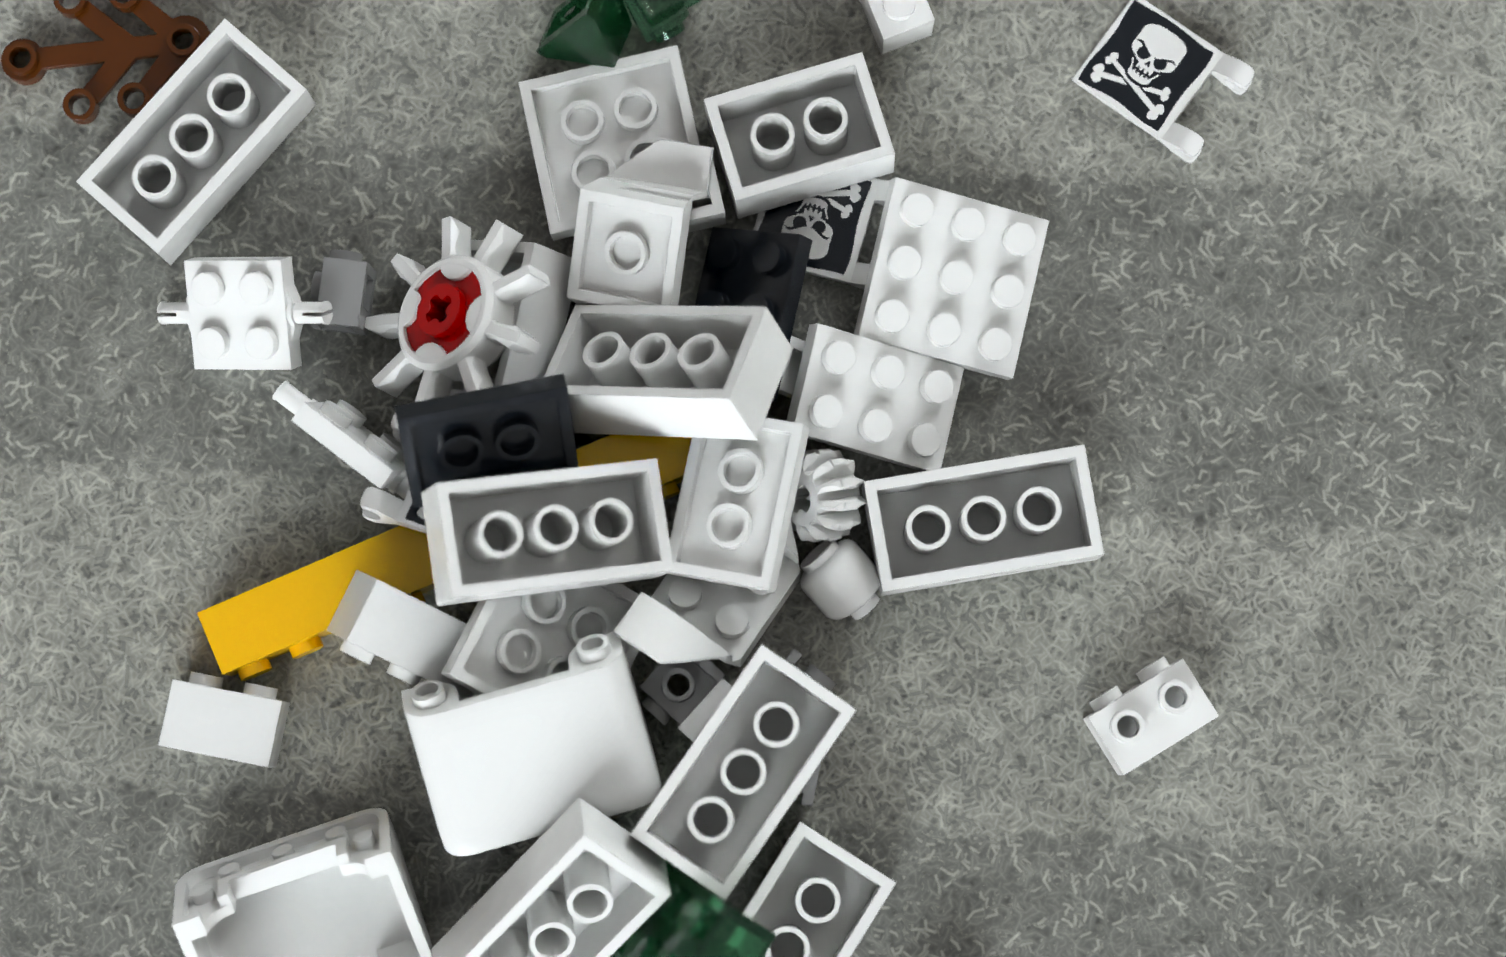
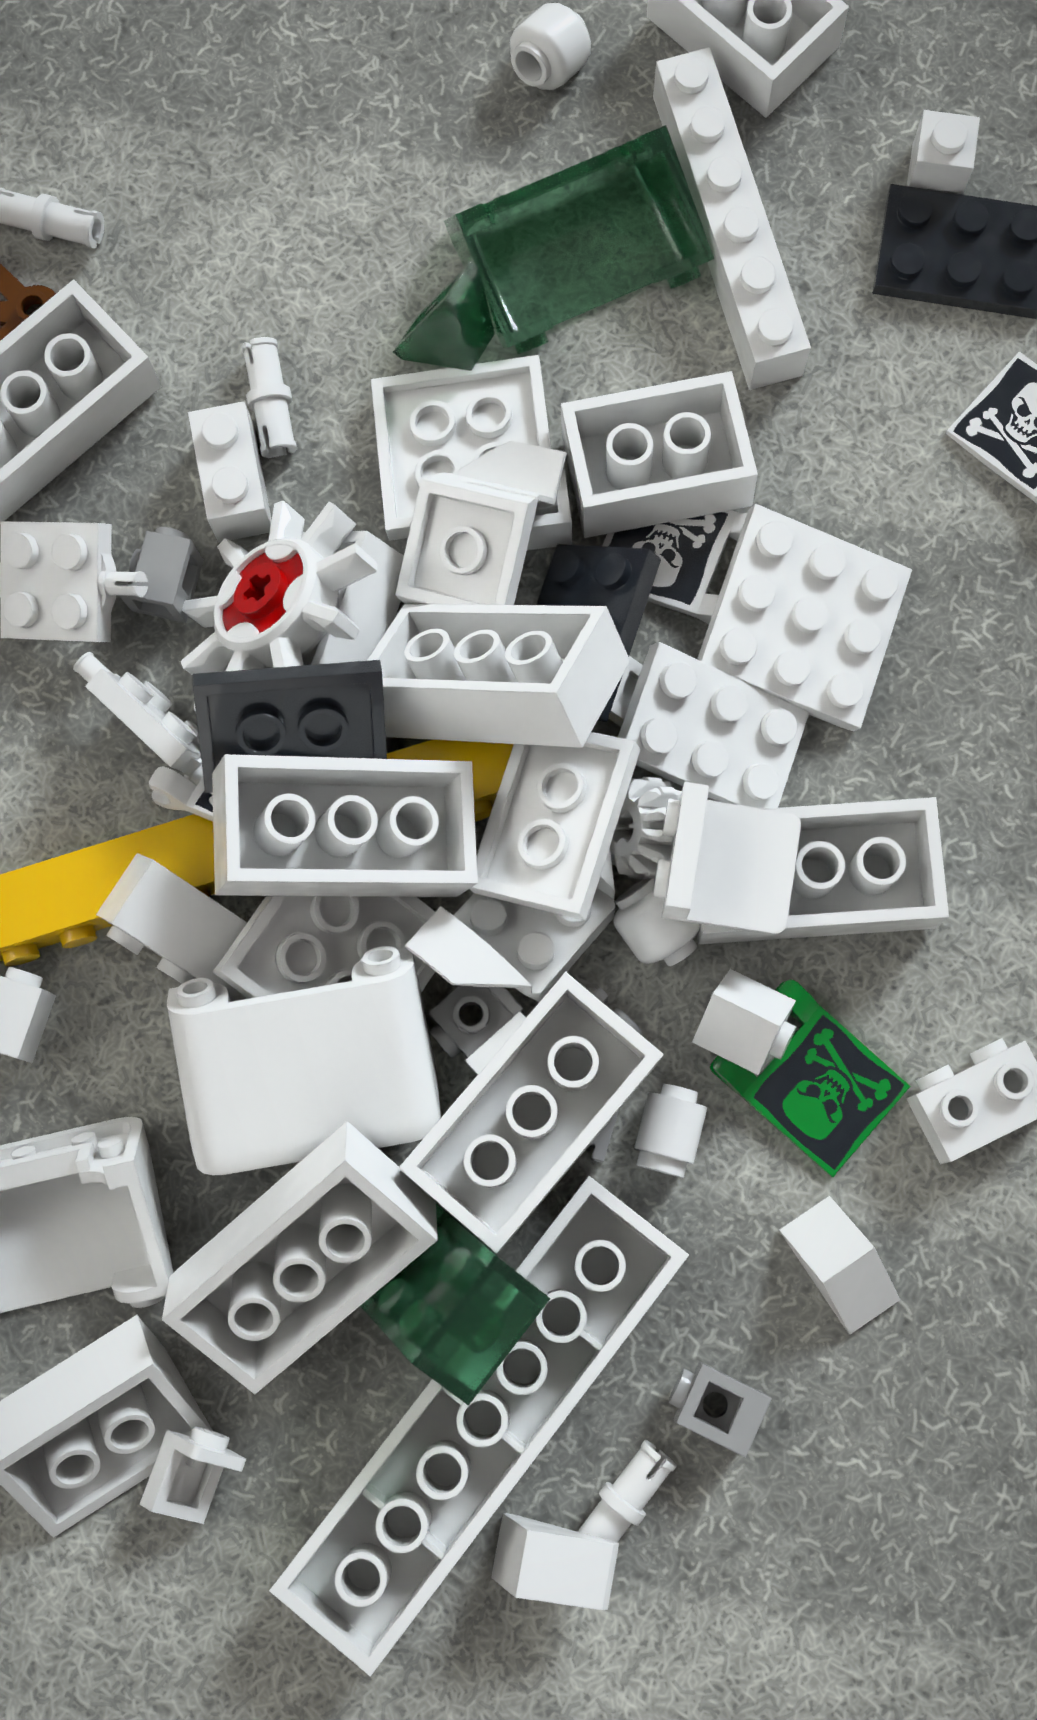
camera: 10 degrees right, 5 degrees down
(395, 188) = (230, 471): none -> white brick
(422, 108) = (269, 397): none -> white pin
(869, 771) = (670, 1130): none -> white brick
(899, 527) = (727, 863): none -> white bracket
(930, 666) = (746, 1022): none -> white brick
(1003, 716) = (823, 1089): none -> flag
(1034, 875) = (841, 1264): none -> white slope

